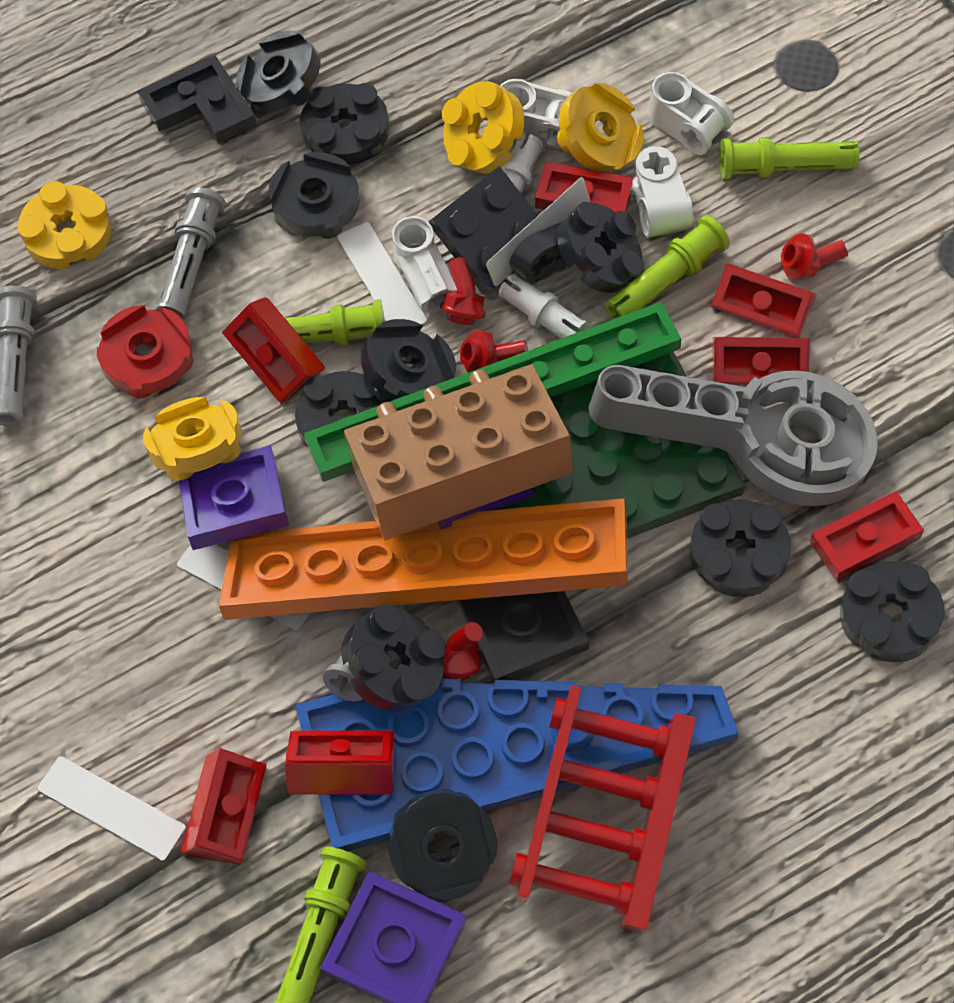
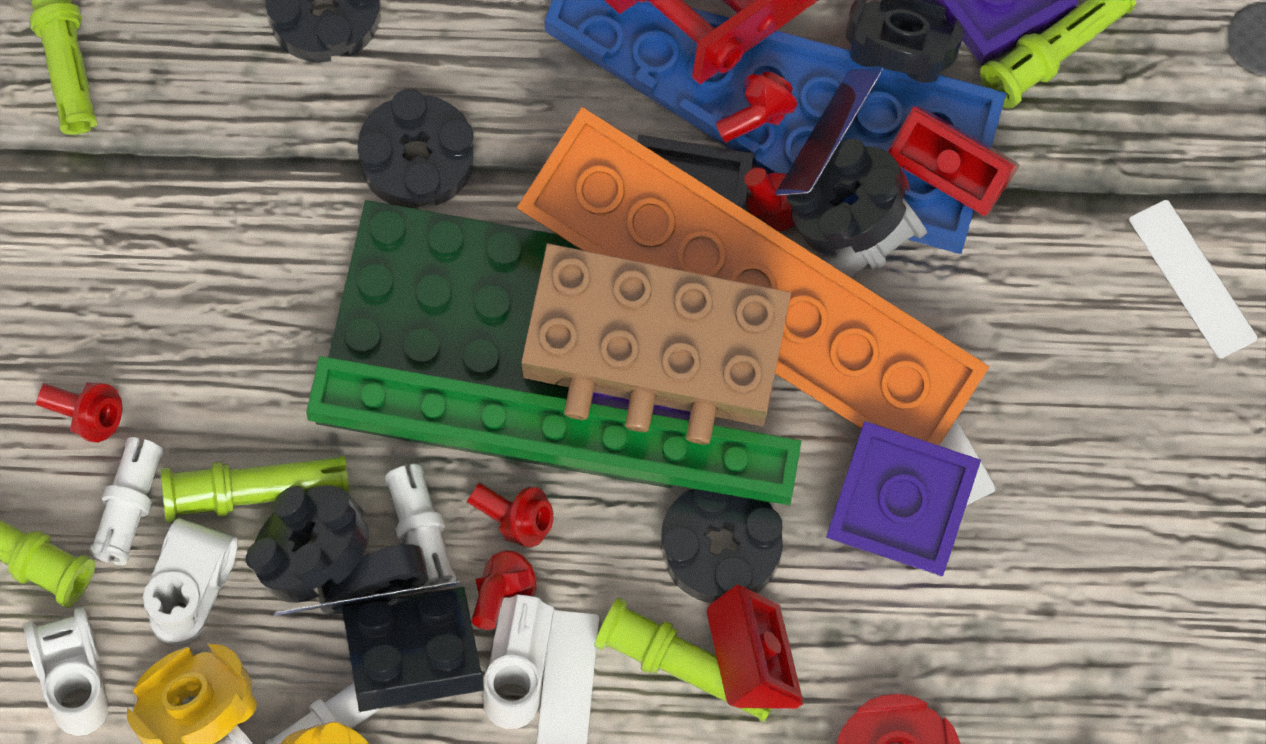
camera: 155 degrees left, 5 degrees up
(181, 455) = (927, 625): yellow plate -> none
(224, 807) = (1085, 209): red slope -> none
(400, 339) = (640, 560): black plate -> none
(444, 712) = (828, 131): none -> black sticker
(509, 707) = (769, 102): none -> red plate
(603, 188) = (267, 644): red plate -> none
(737, 222) = (126, 501): none -> white pin
(743, 358) = (231, 333): red slope -> none
(755, 437) = (305, 236): light grey beam -> none
(763, 300) = (170, 397): red slope -> none
(866, 535) = (288, 80): red plate -> none

